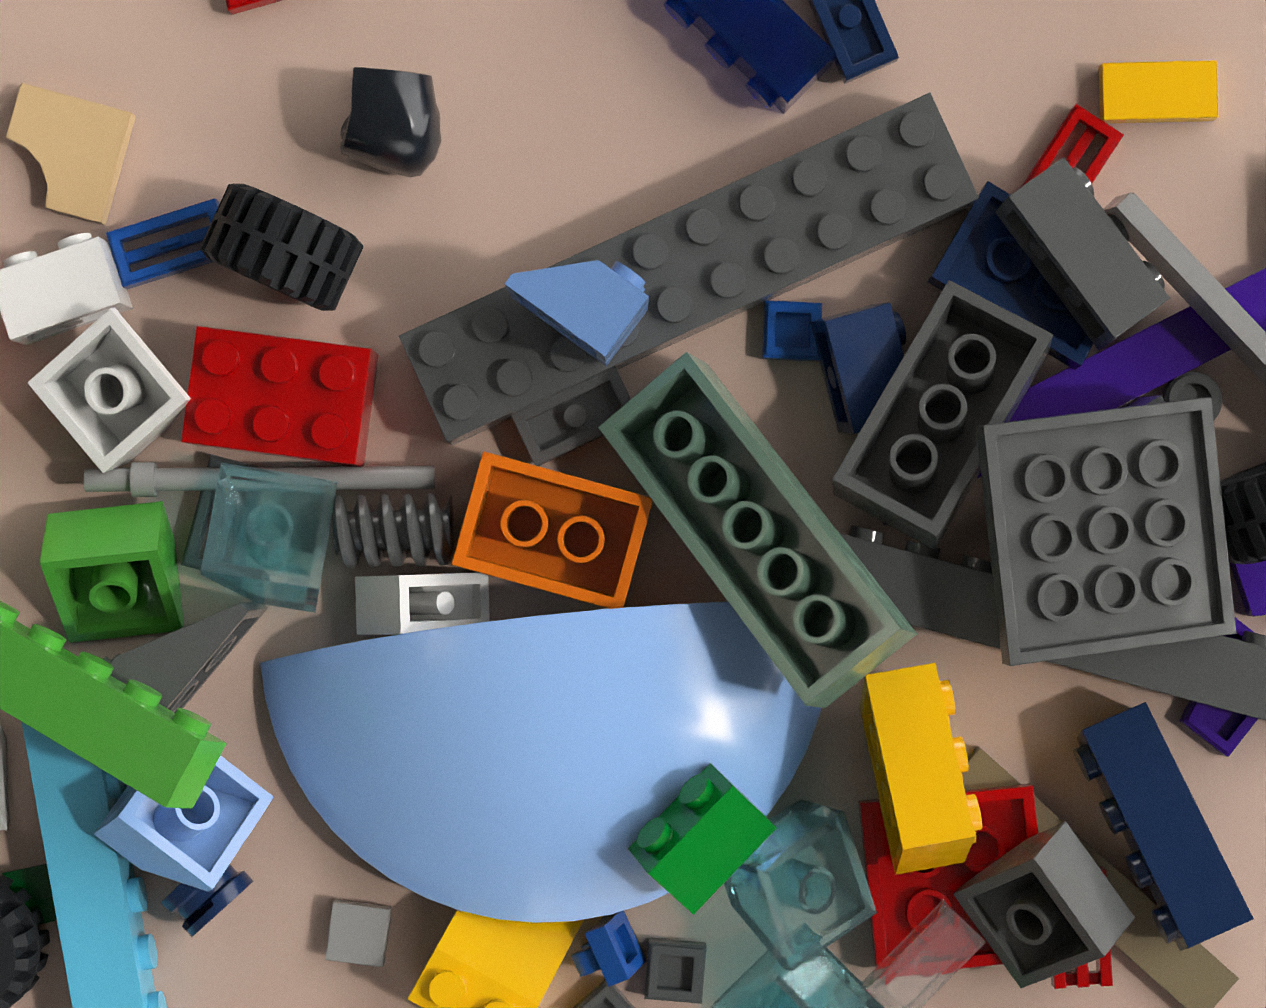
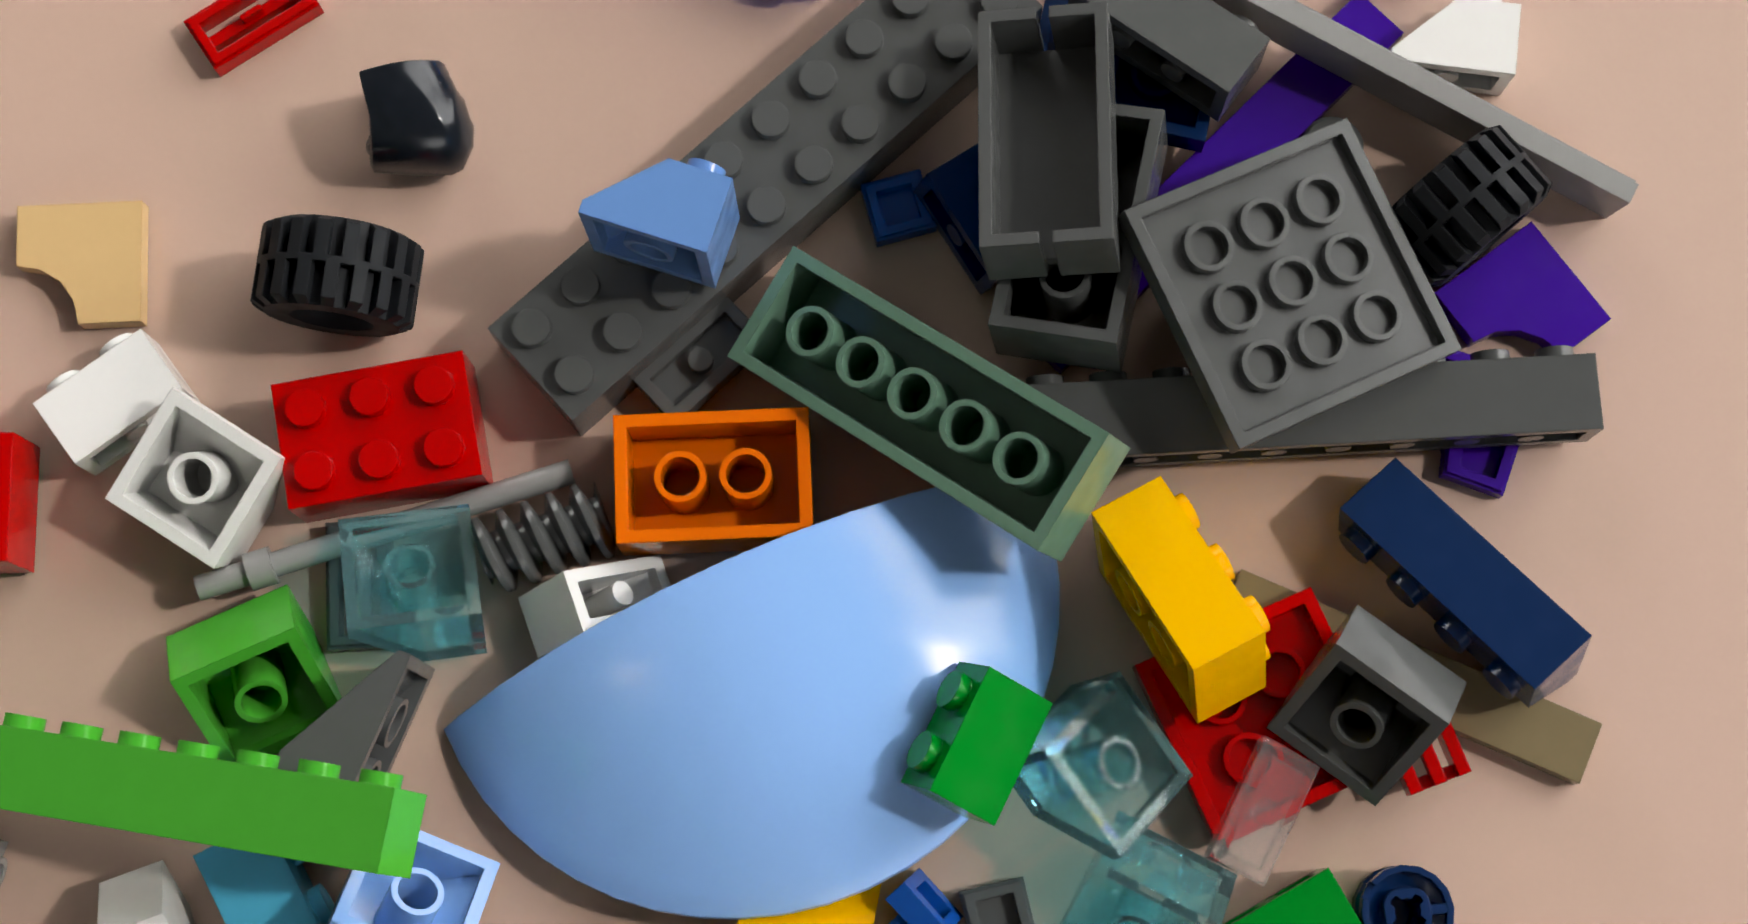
camera: 15 degrees left, 10 degrees down
(157, 224) = (201, 307): blue tile -> none
(938, 337) = (1047, 143): none -> dark grey piece

